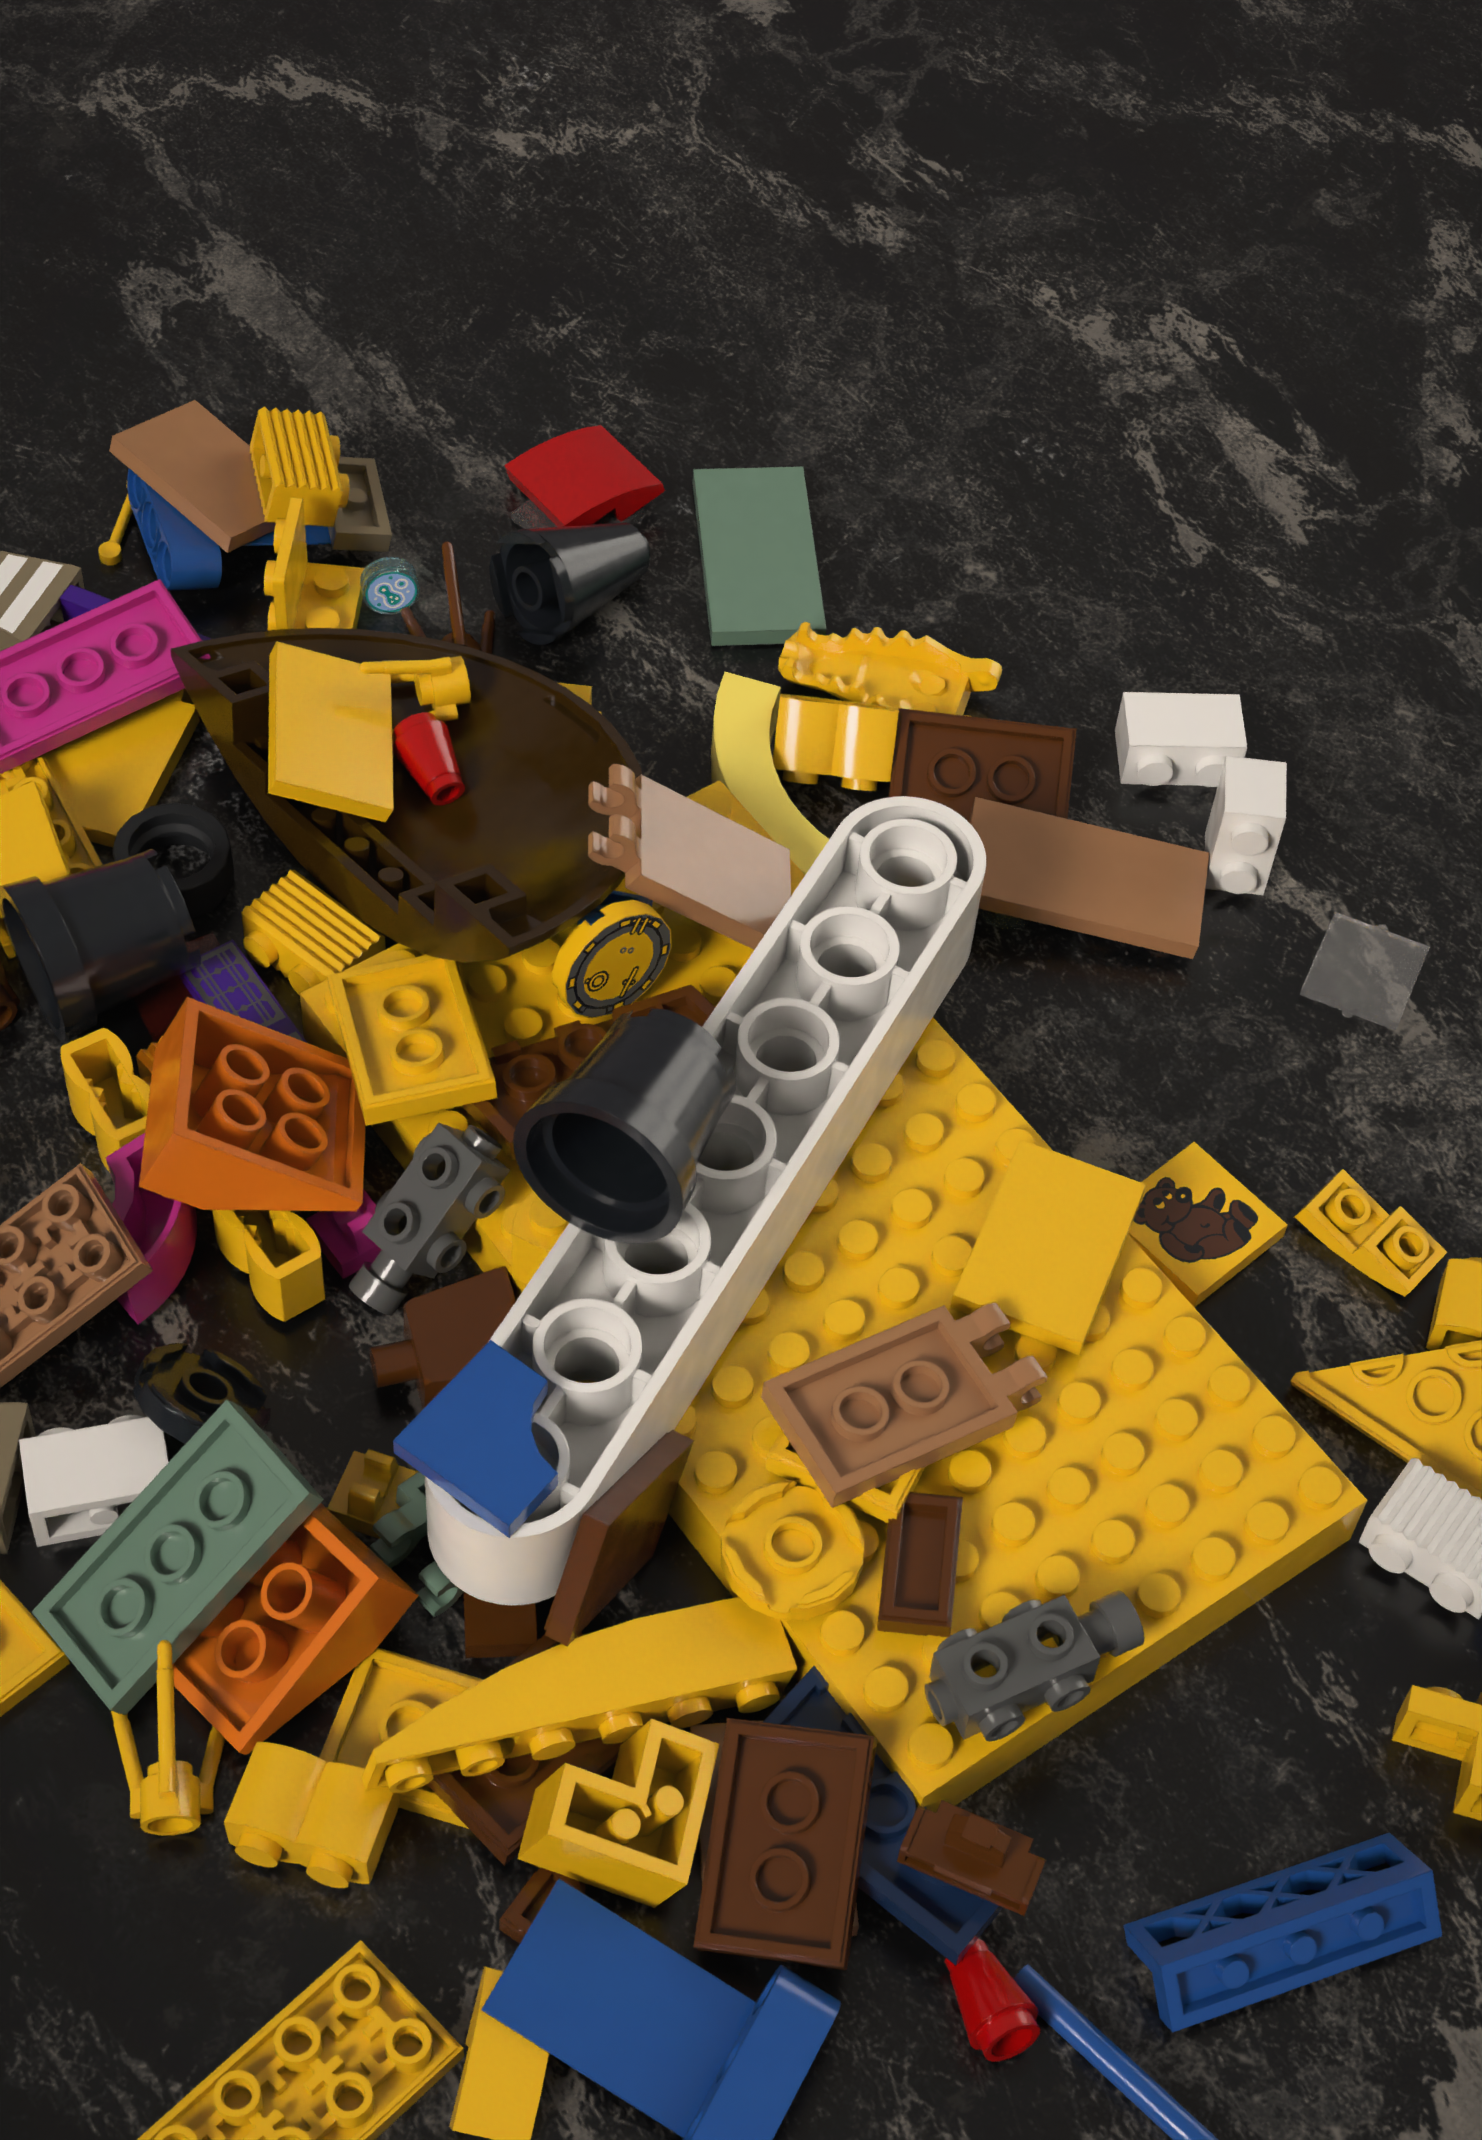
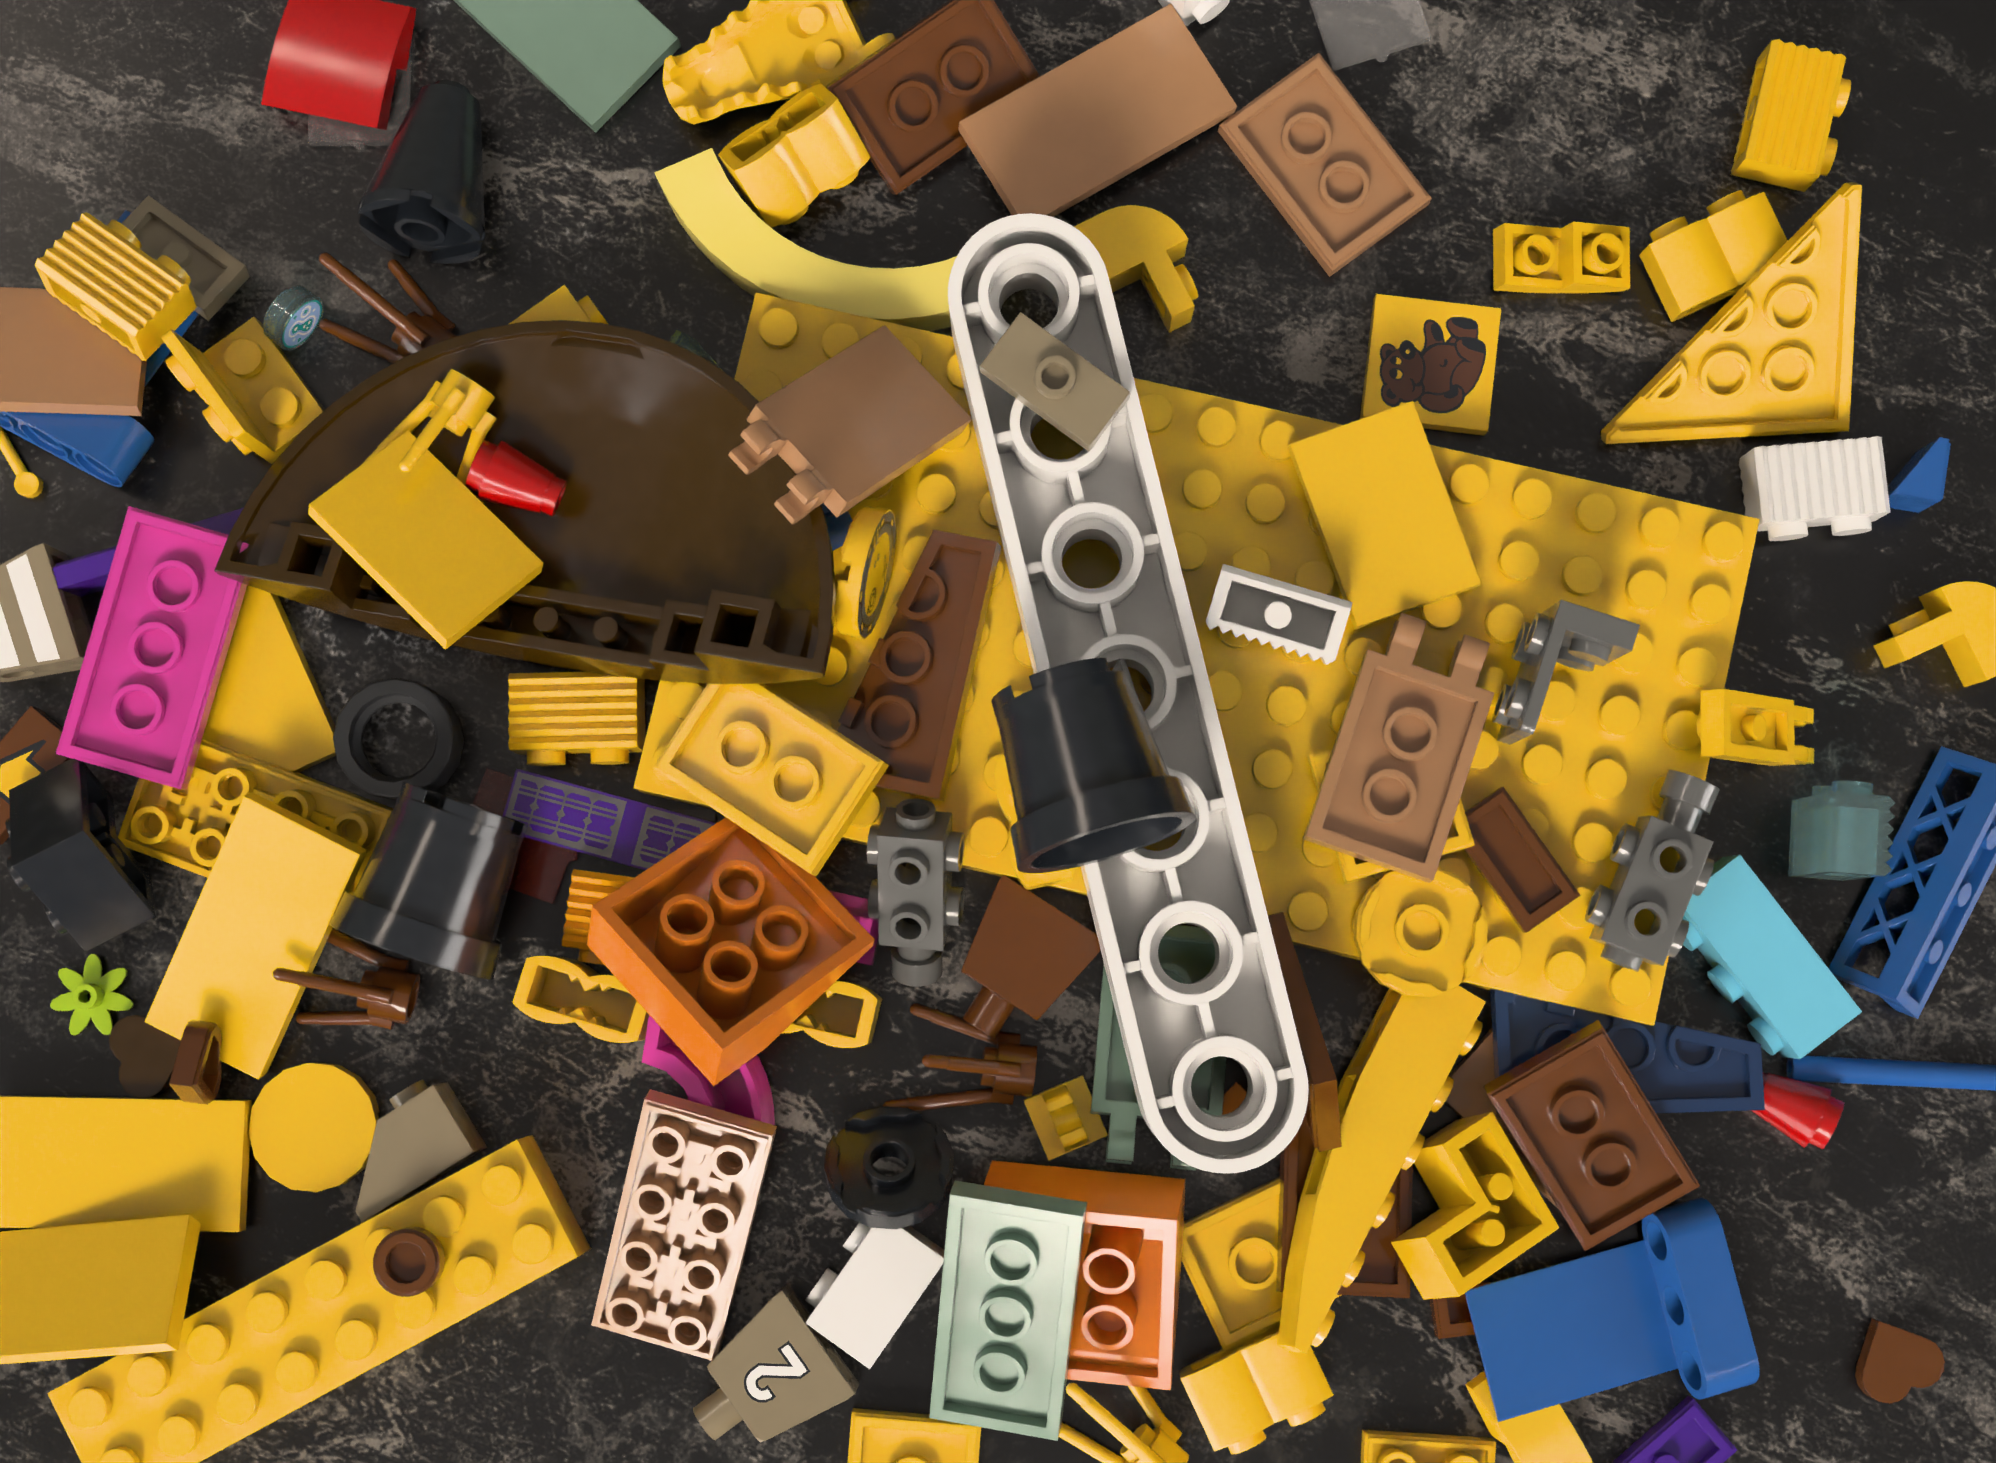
camera: 30 degrees left, 30 degrees up
(365, 1413) = (1006, 1068): none -> reddish brown plant
(481, 1441) = (1195, 1104): blue tile -> none
(870, 913) = (1054, 381): none -> dark tan plate
(895, 1224) = (1278, 614): none -> white brick
(973, 1855) = (1728, 1043): reddish brown piece -> none
(1028, 972) = (1143, 246): none -> yellow brick
(1077, 1825) = (1765, 962): none -> medium azure brick
(1099, 1399) = (1561, 635): none -> dark grey bracket
(1224, 1649) = (1752, 728): none -> yellow hinge
(1226, 1794) = (1840, 833): none -> clear light blue brick
(1234, 1041) = (1324, 164): none -> medium nougat tile

